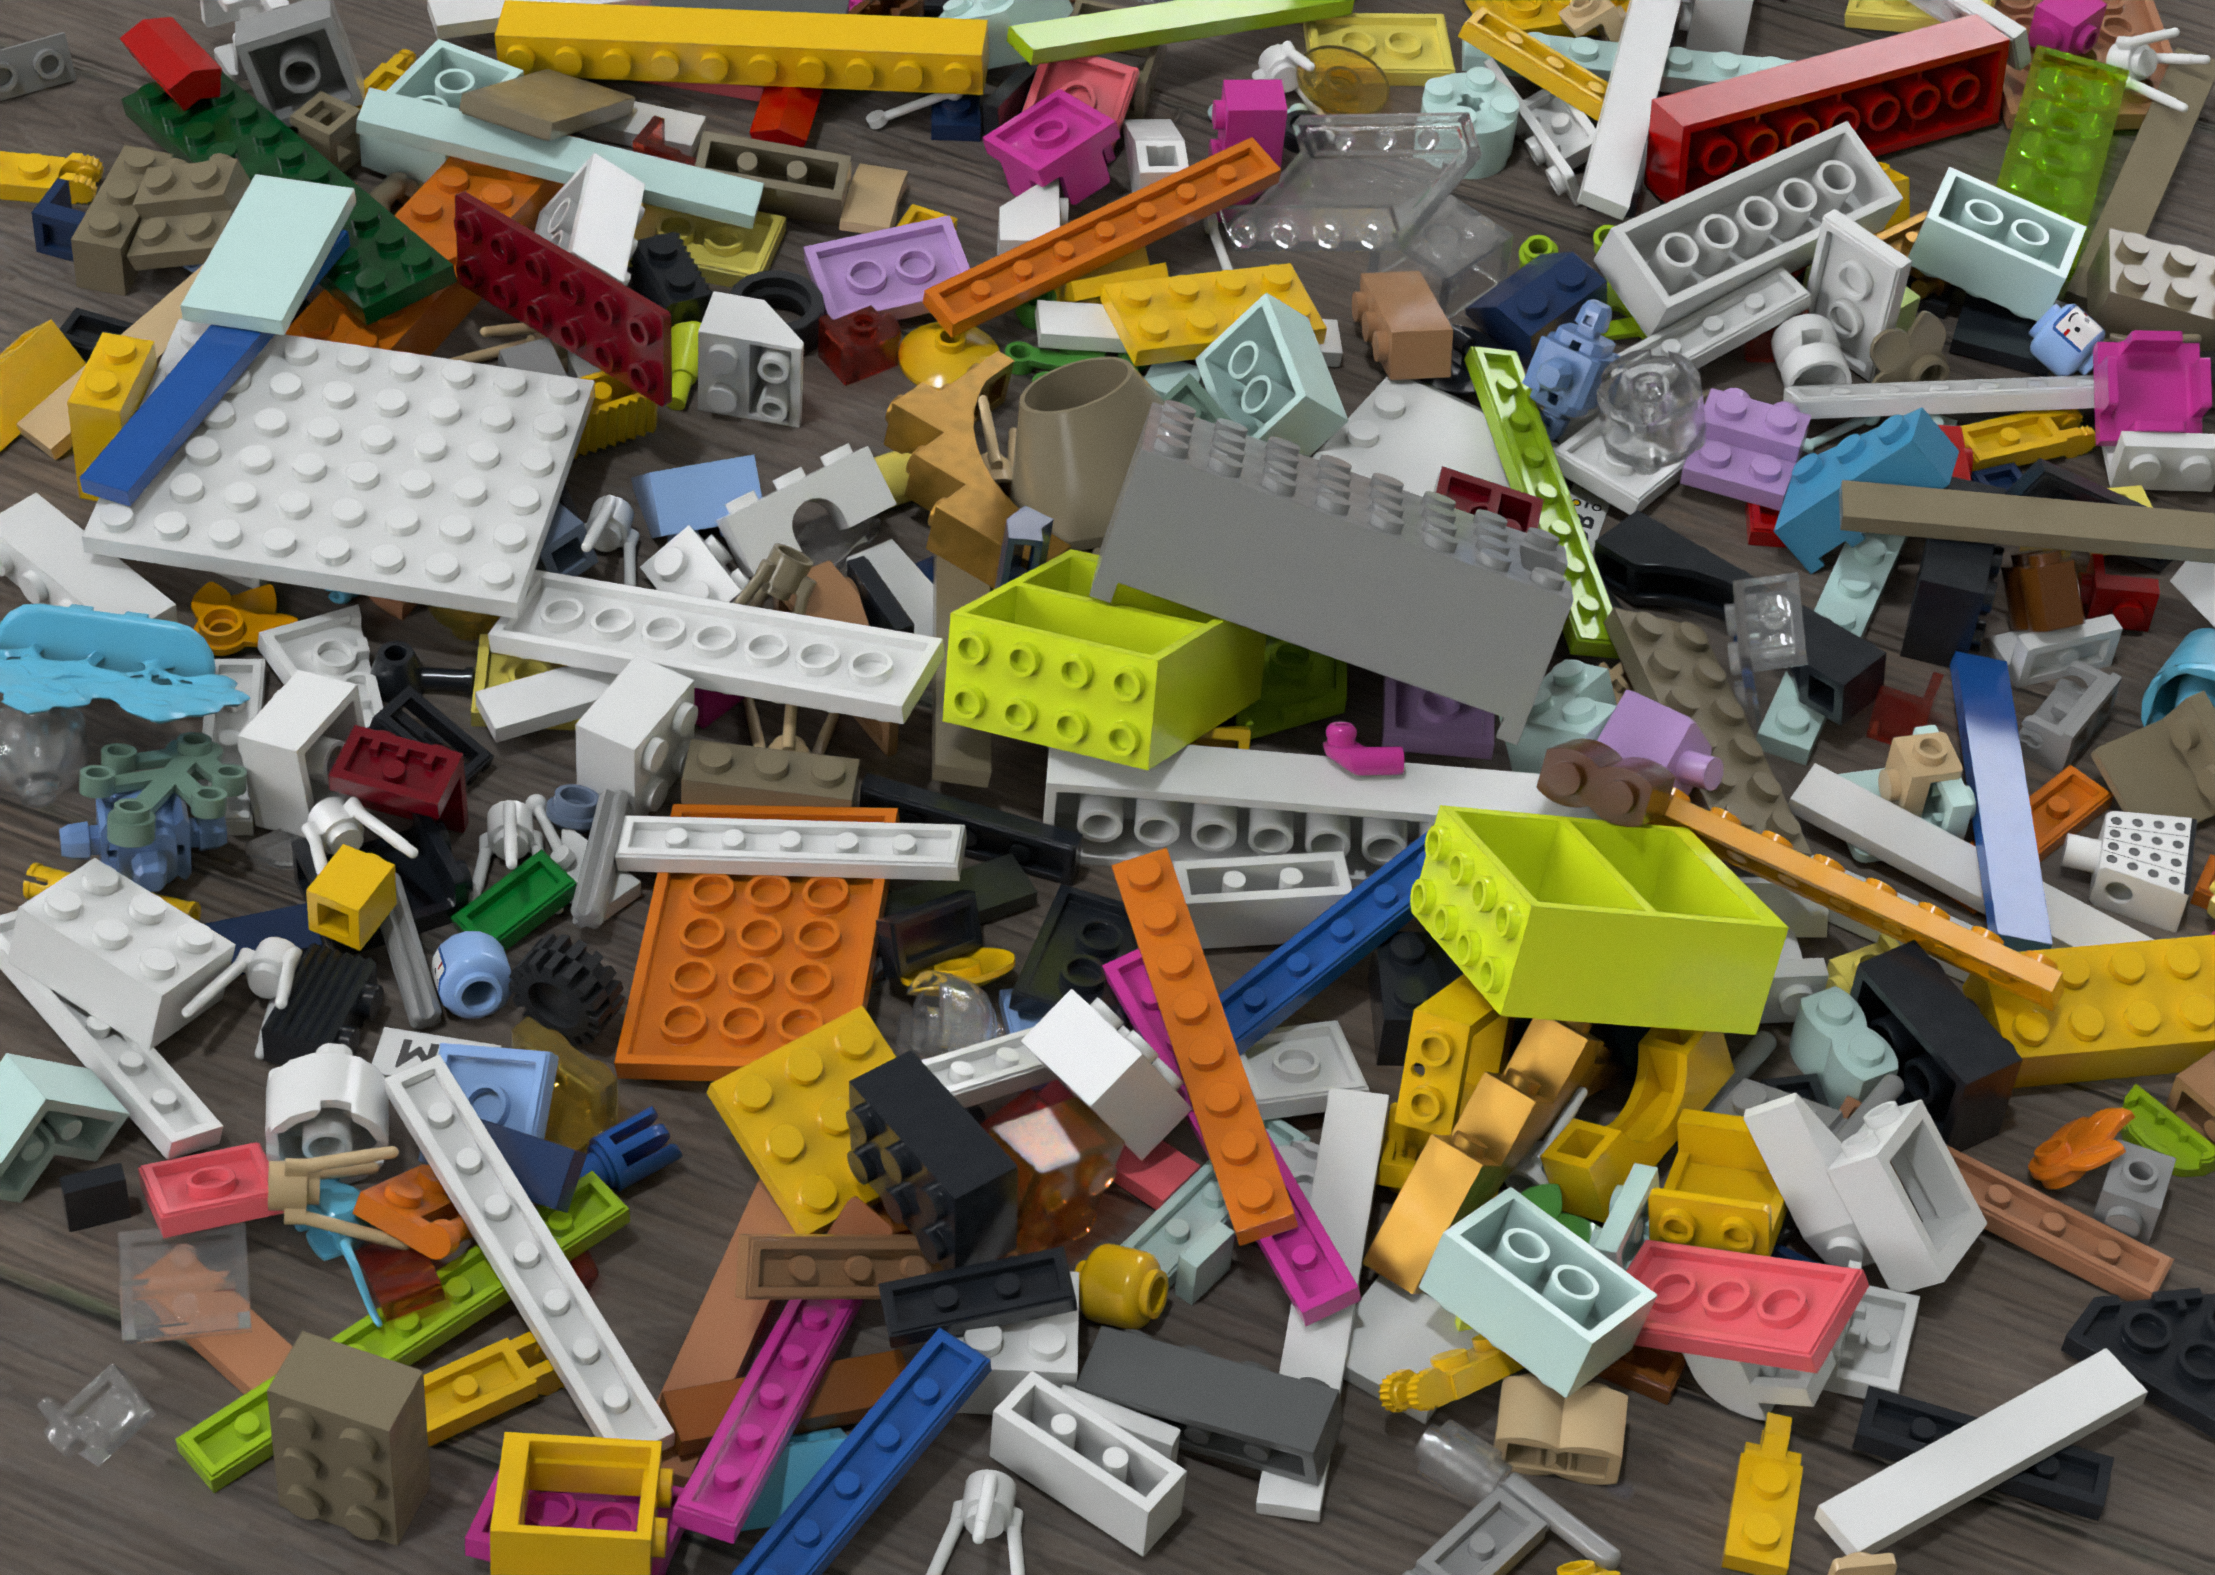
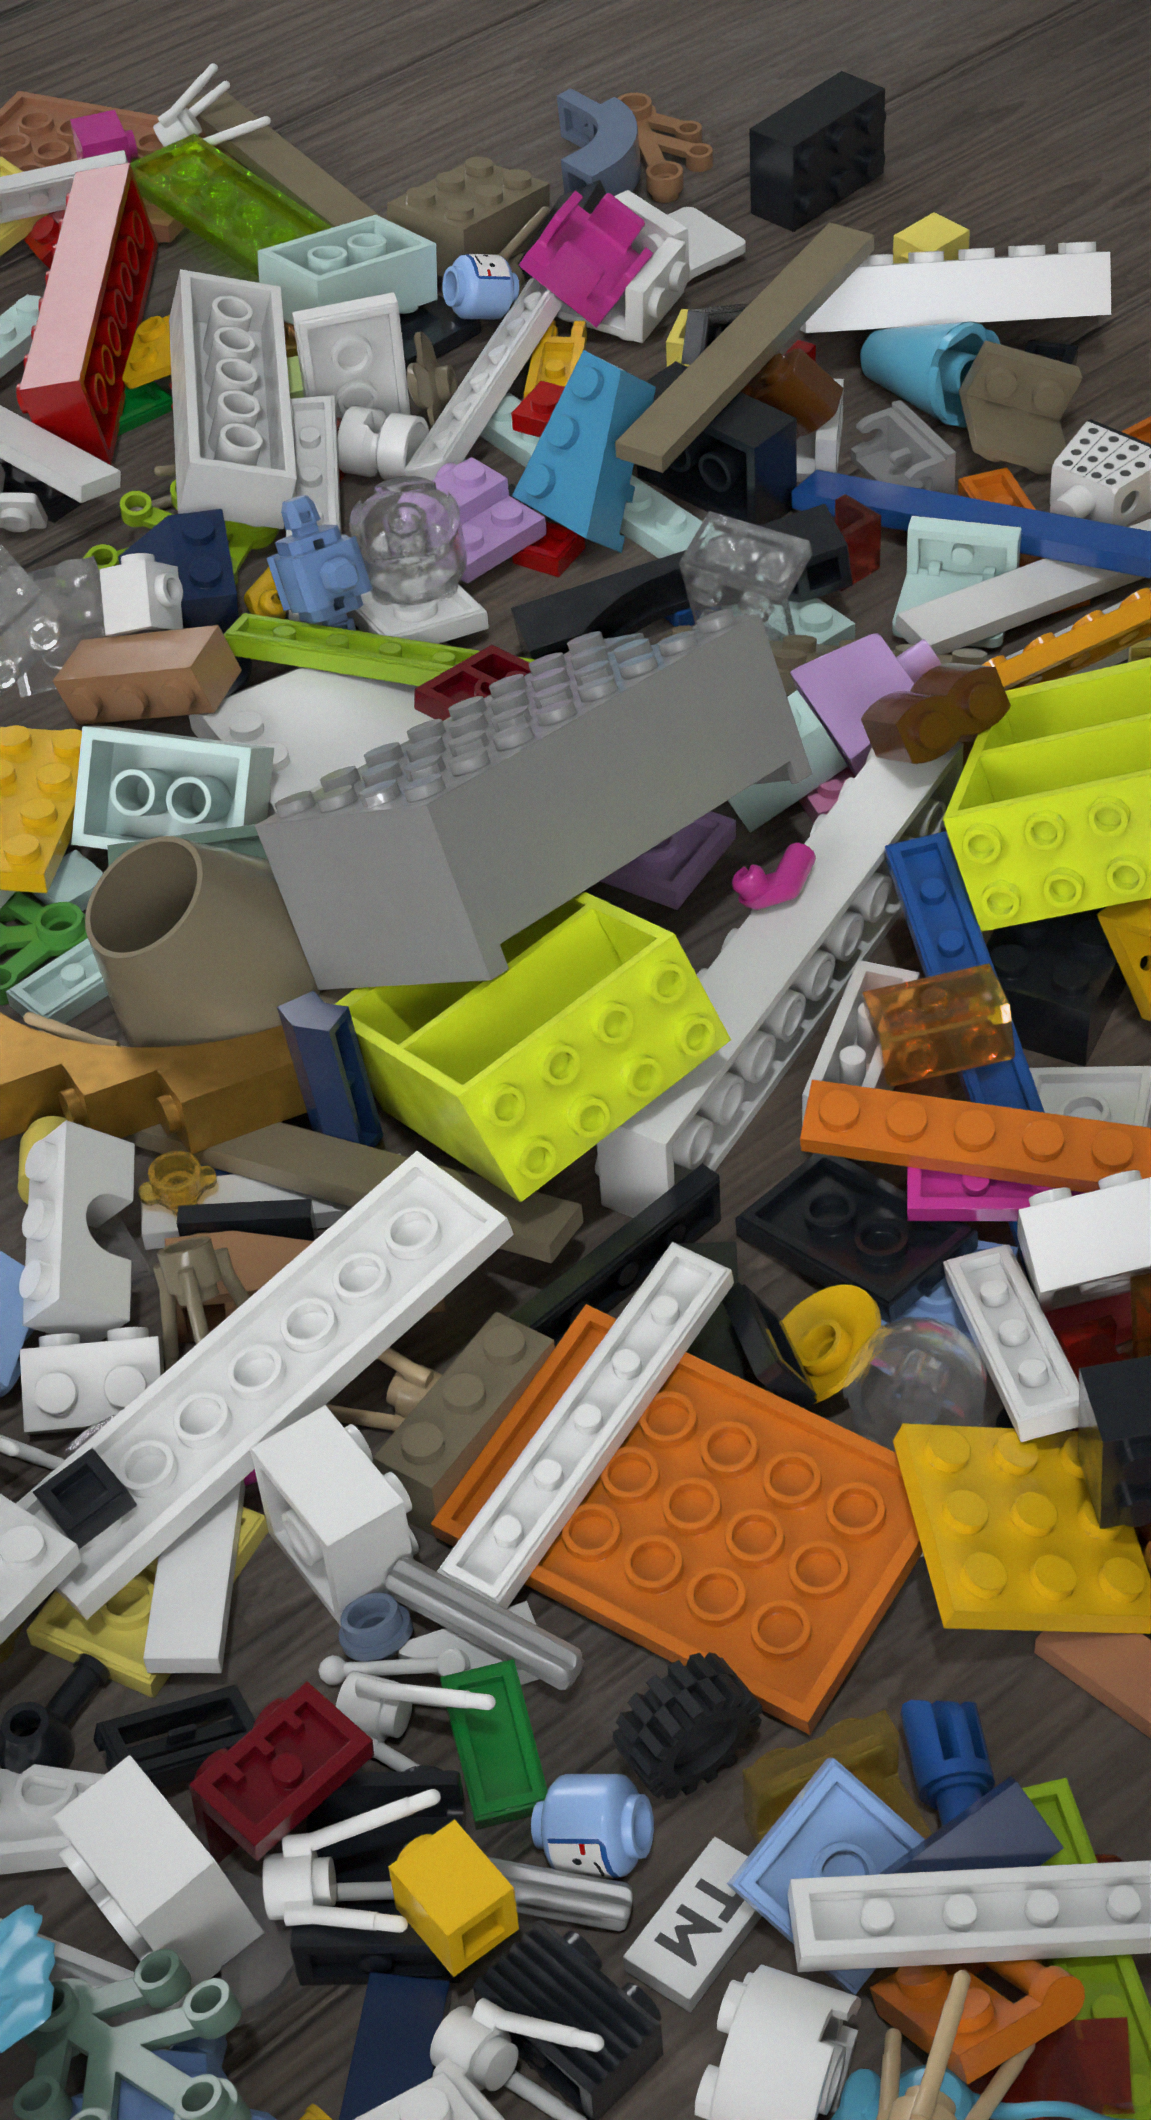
camera: 55 degrees left, 0 degrees up
(566, 599) = (85, 1498): none -> black tile
(895, 551) = (176, 1181): none -> clear yellow plate
(1285, 911) = (940, 1024): none -> clear orange bracket
(1469, 278) = (141, 596): none -> white brick
(1914, 765) = (951, 551): tan bracket -> none

